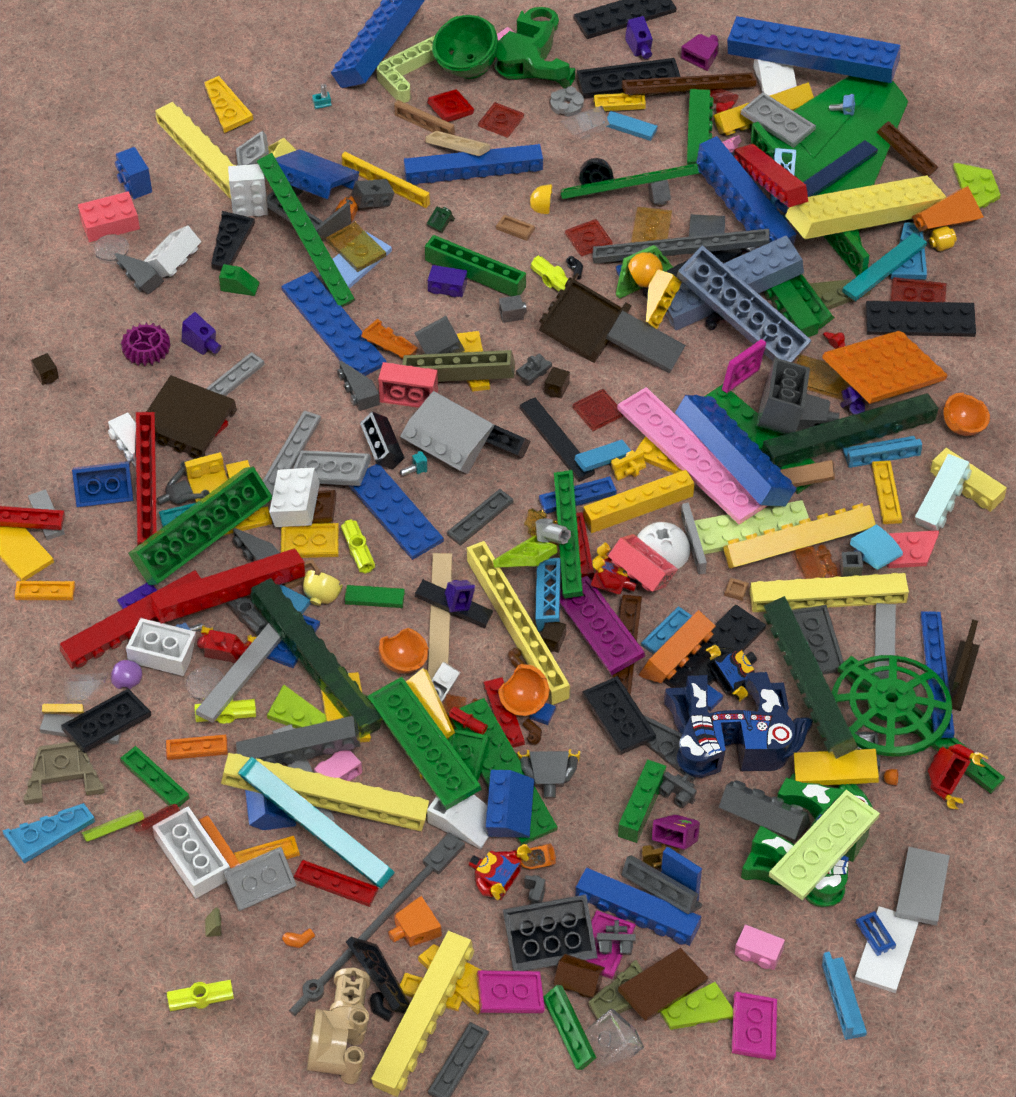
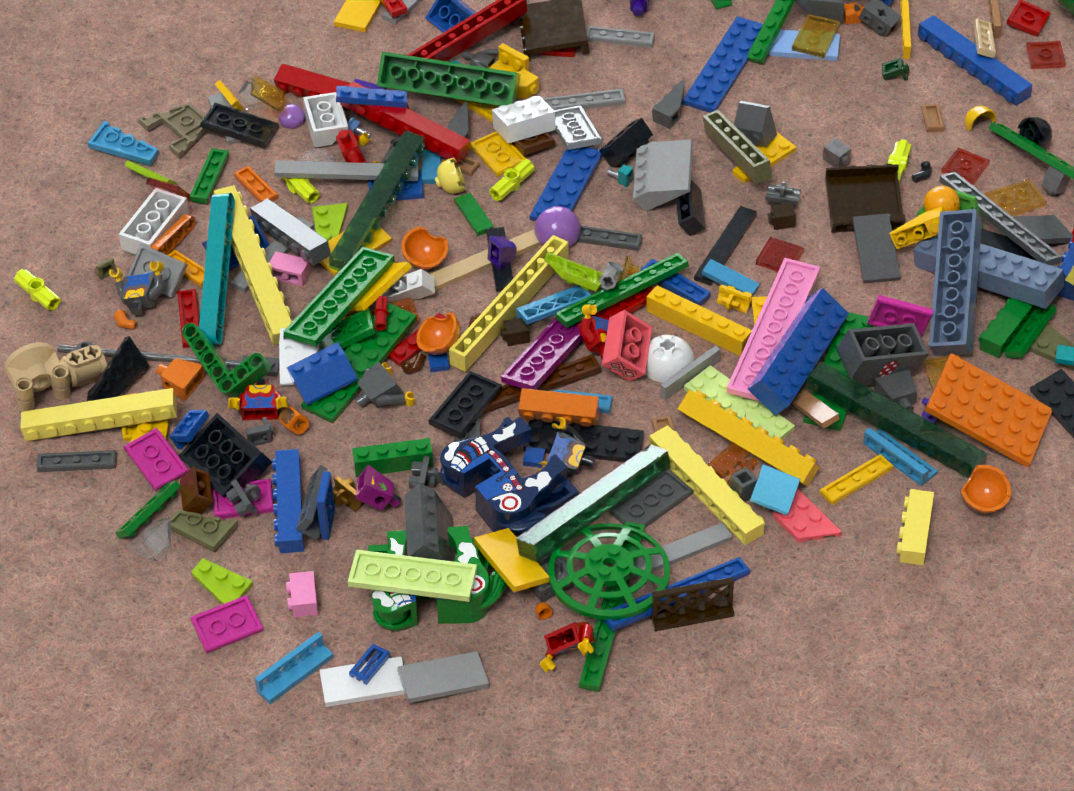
camera: 60 degrees right, 5 degrees down
(45, 590) = (334, 39): light orange tile -> none
(93, 674) = (267, 93): none -> clear yellow tile
(187, 591) = (371, 96): none -> blue plate
(276, 905) = (140, 290): none -> torso
(379, 335) = (733, 93): orange wing -> none
(406, 384) = (692, 125): coral brick -> none
(430, 882) = (217, 366): none -> green beam
(447, 281) = (830, 103): dark purple brick -> none
(450, 542) = (557, 222): none -> medium lavender cylinder
(478, 267) = (859, 110): green brick -> none
(493, 943) = (188, 427): none -> blue bracket
(663, 984) = (223, 546): reddish brown tile -> none
(835, 340) = (1000, 370): red piece -> none
(943, 493) = (877, 510): light aqua brick -> none

